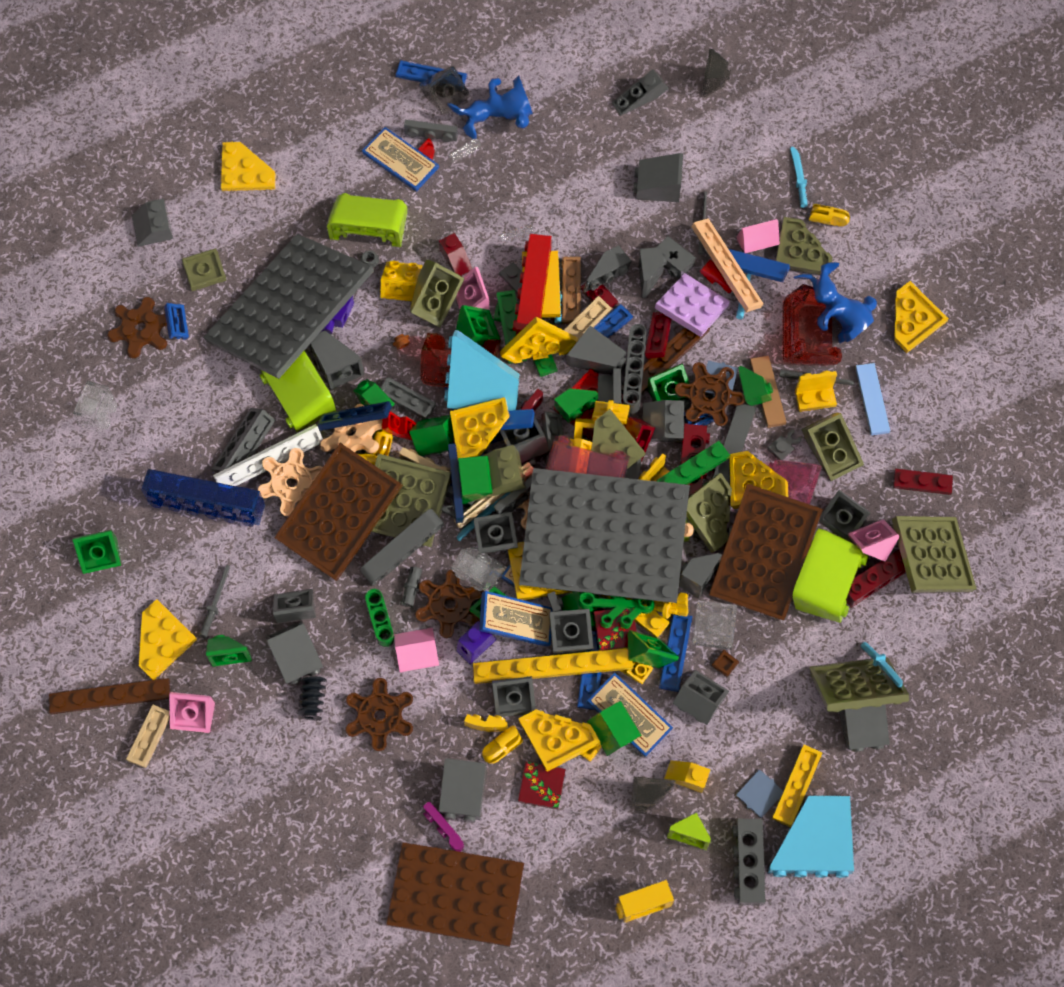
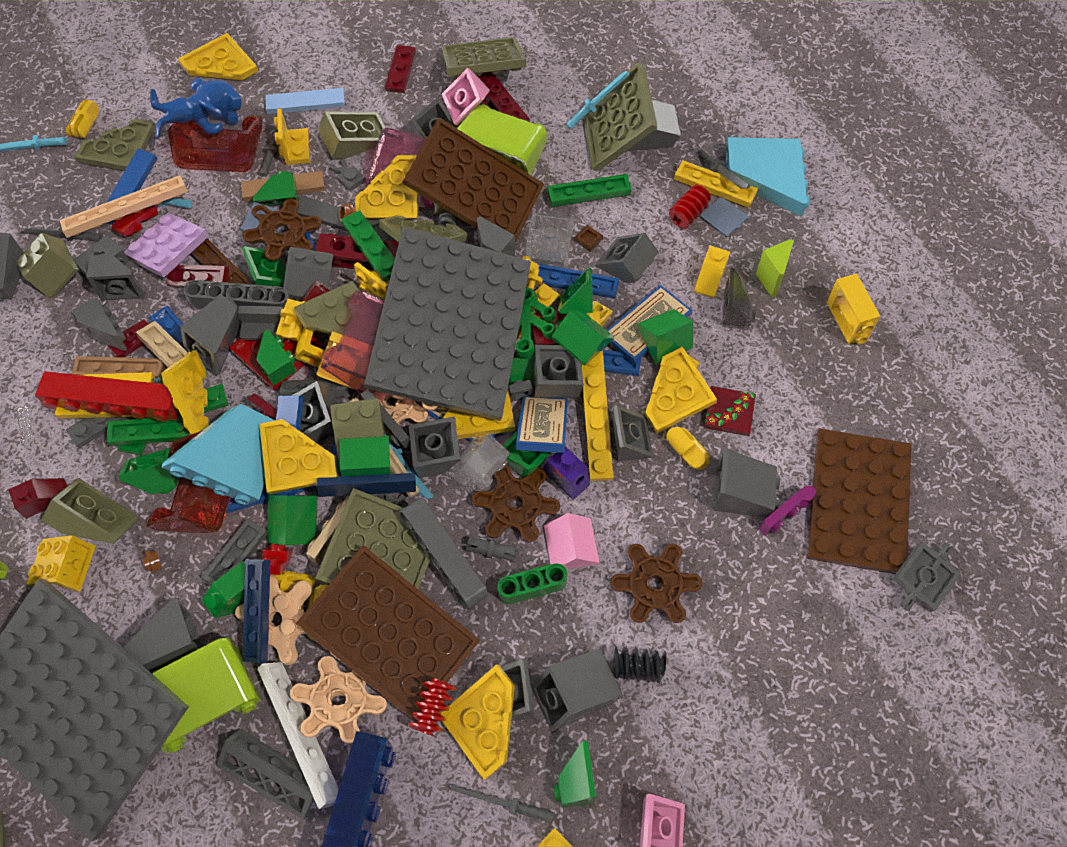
camera: 90 degrees left, 5 degrees down
(272, 583) = (483, 721): none -> yellow plate
(280, 547) = (432, 707): none -> red piece
(370, 254) = (12, 602): dark grey plate -> none
(381, 939) = (926, 576): none -> dark grey plate
(473, 291) = (100, 471): bright pink slope -> none
(492, 724) = (663, 461): yellow slope -> none
(601, 650) = (581, 336): none -> green slope
(662, 218) = (47, 264): none -> olive slope
(732, 446) = (346, 210): none -> dark orange plate
(754, 829) = (797, 224): dark grey brick -> none
(759, 236) = (96, 177): bright pink slope -> none
(762, 756) = (690, 206): none -> red piece
(780, 663) = (589, 190): none -> green plate
(816, 787) = (718, 167): none -> dark grey sword

